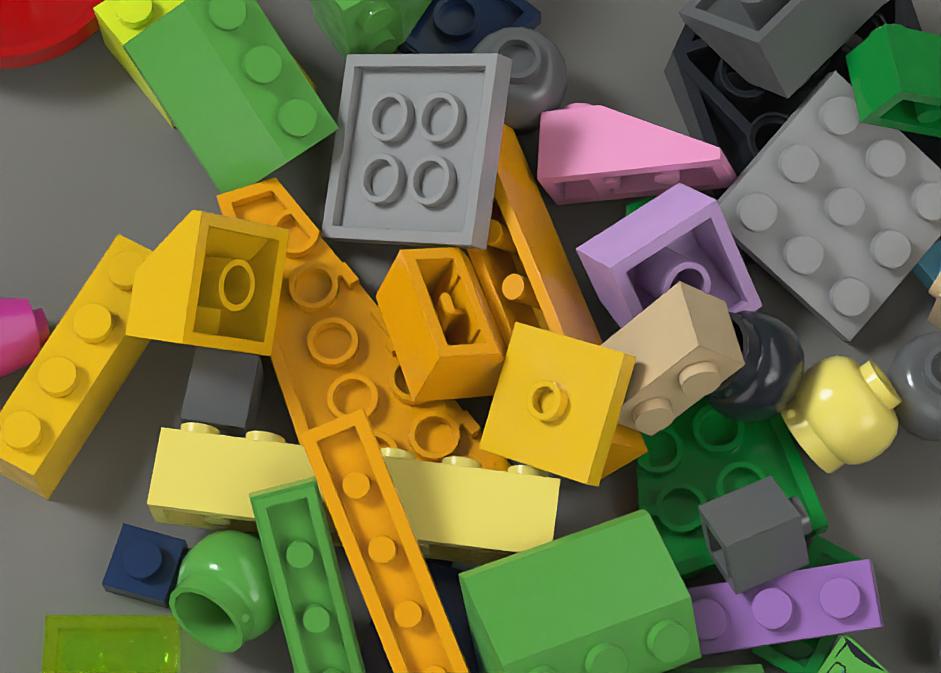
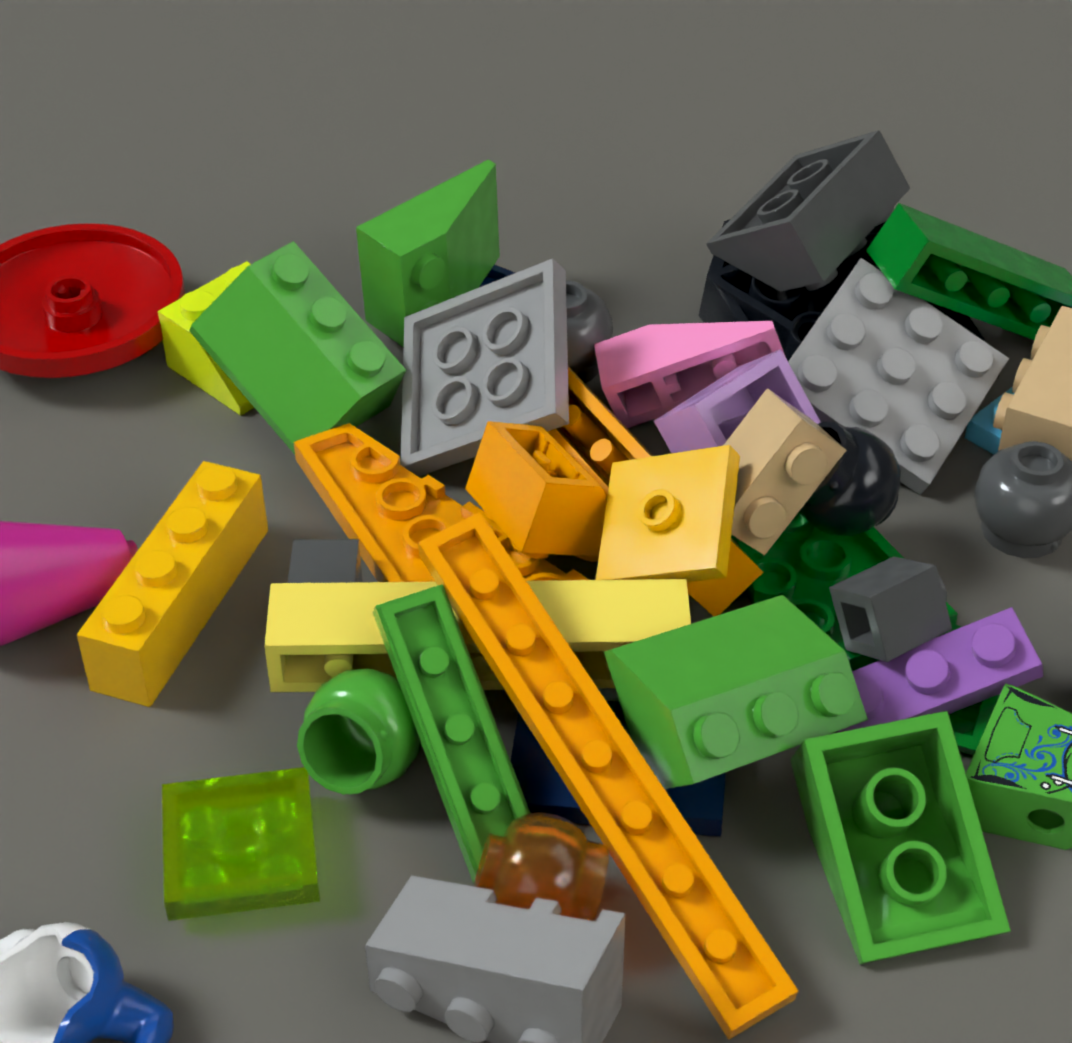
camera: 10 degrees left, 25 degrees down
(145, 565) = (260, 740): dark blue plate -> none
(211, 285) = (300, 475): yellow slope -> none
(843, 412) = (944, 518): light yellow piece -> none

